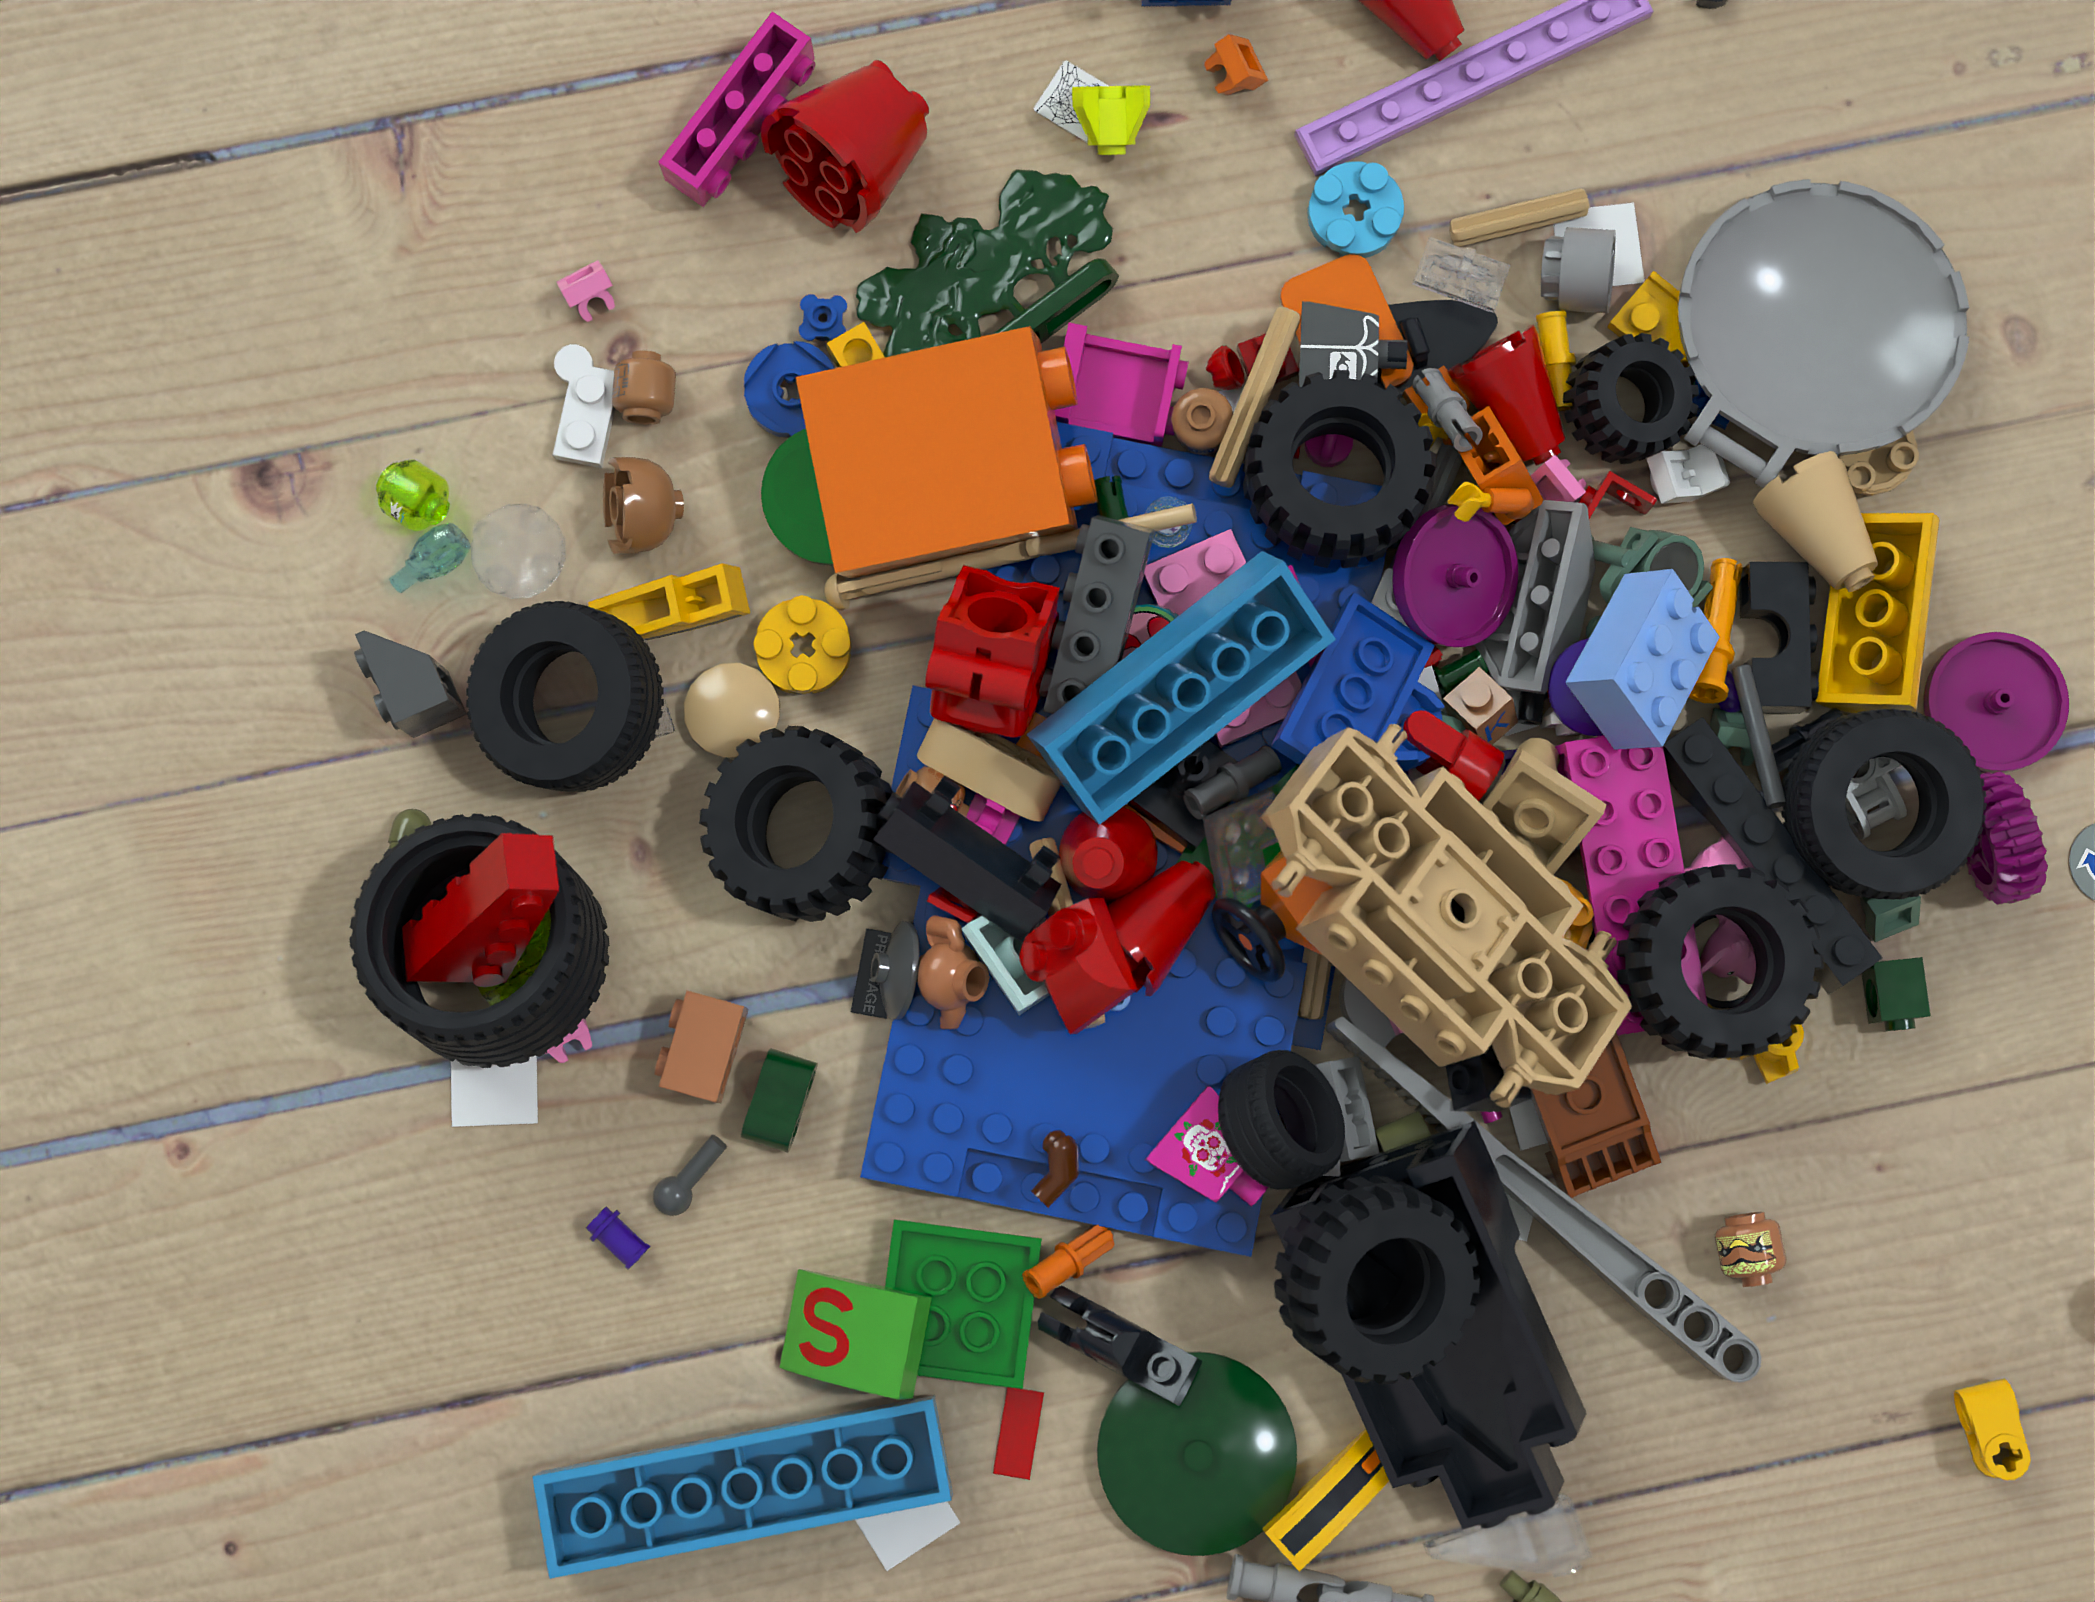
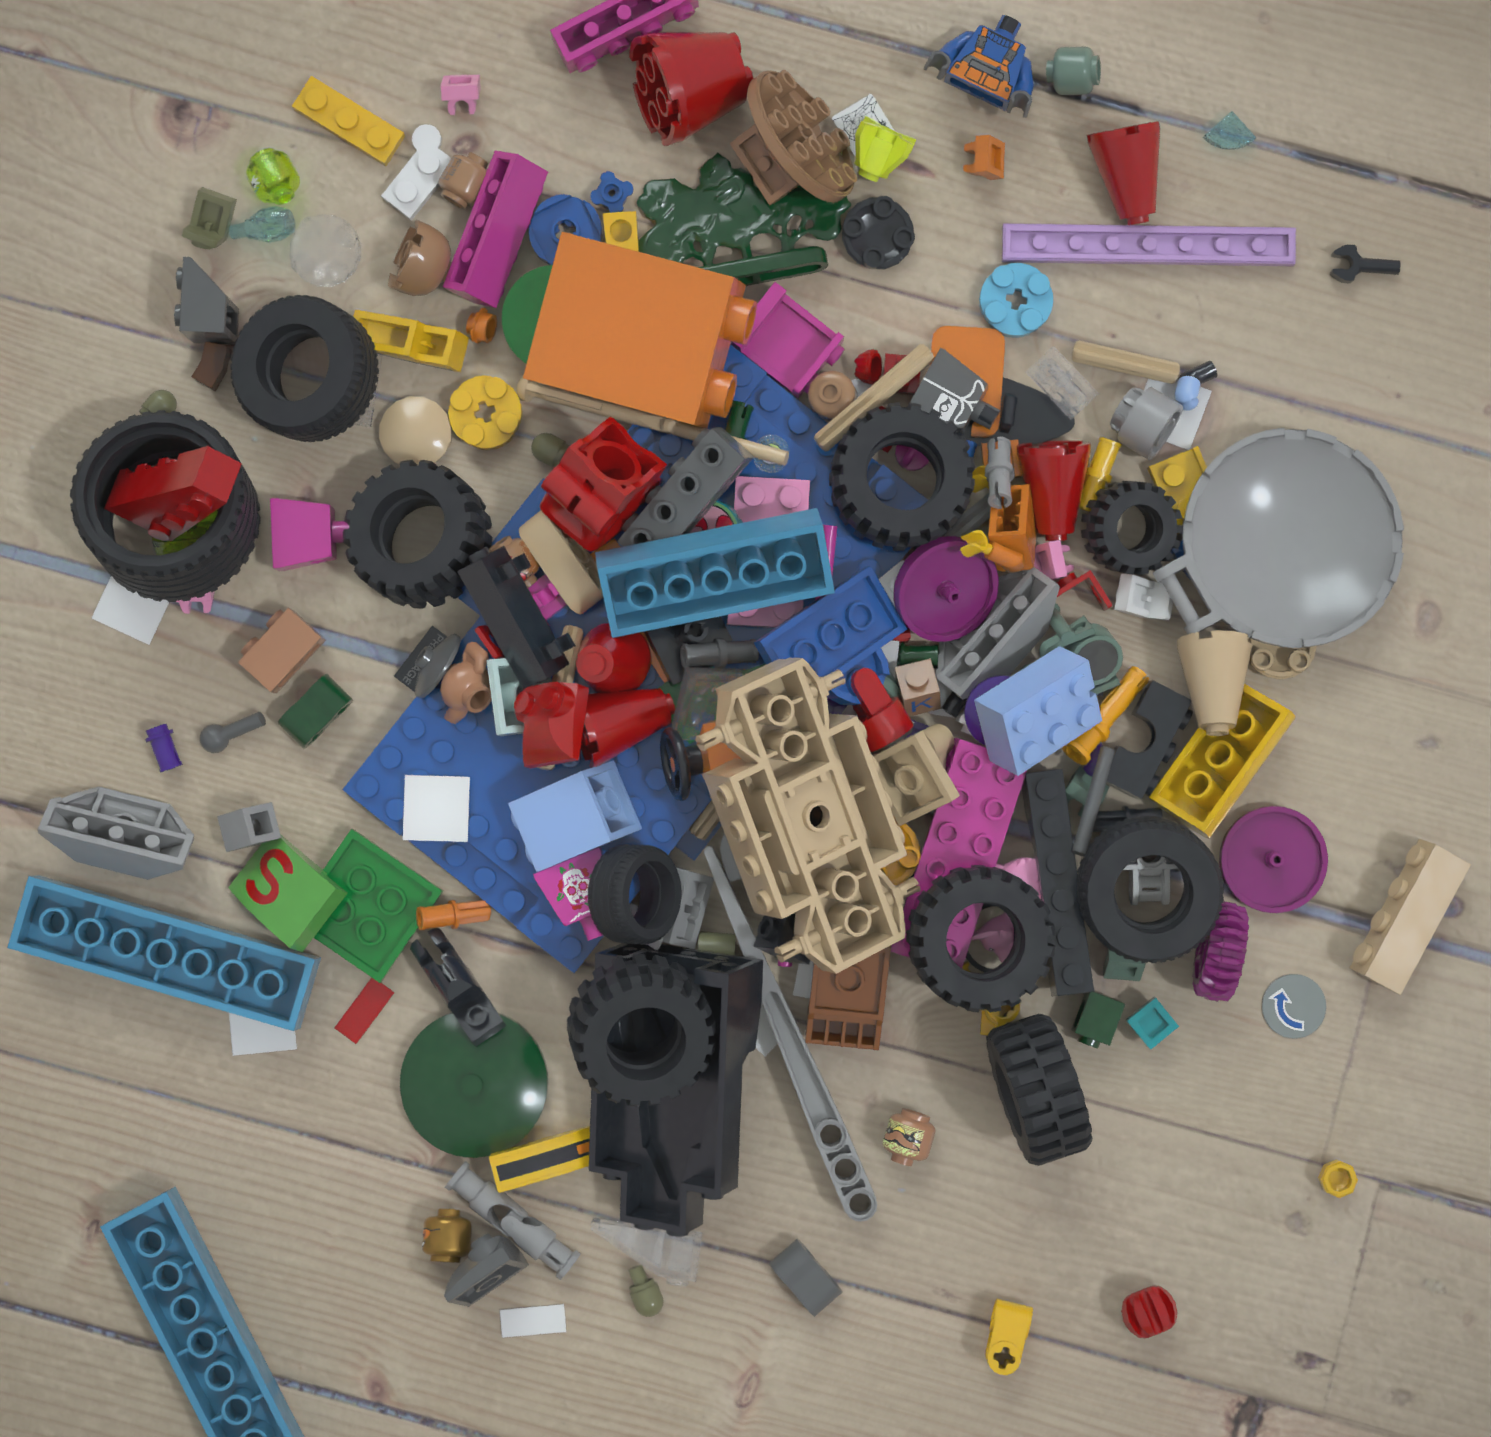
camera: 30 degrees right, 5 degrees up
(363, 581) = (210, 219): none -> olive bracket
(450, 751) = (212, 365): none -> reddish brown piece
(470, 388) = (348, 121): none -> yellow plate
(614, 1368) = (118, 832): none -> light grey wedge
(660, 894) = (303, 533): none -> dark pink torso
(708, 424) = (495, 229): none -> dark pink brick
(748, 547) = (481, 326): none -> orange plate
(770, 1280) = (249, 827): none -> light grey brick
(903, 650) = (548, 448): none -> olive cylinder
(985, 1141) = (436, 808): none -> white sticker
(999, 163) = (788, 145): none -> medium nougat bracket
(1062, 1167) = (477, 851): reddish brown arm -> none
(1156, 211) = (878, 233): none -> black dish
(1158, 1066) = (574, 816): none -> light blue slope
(1605, 202) = (1189, 384): none -> light blue arm
(1717, 1483) = (805, 1277): none -> dark grey axle
(1883, 1108) = (1039, 1089): none -> black tyre
(1963, 964) = (1152, 1023): none -> teal tile

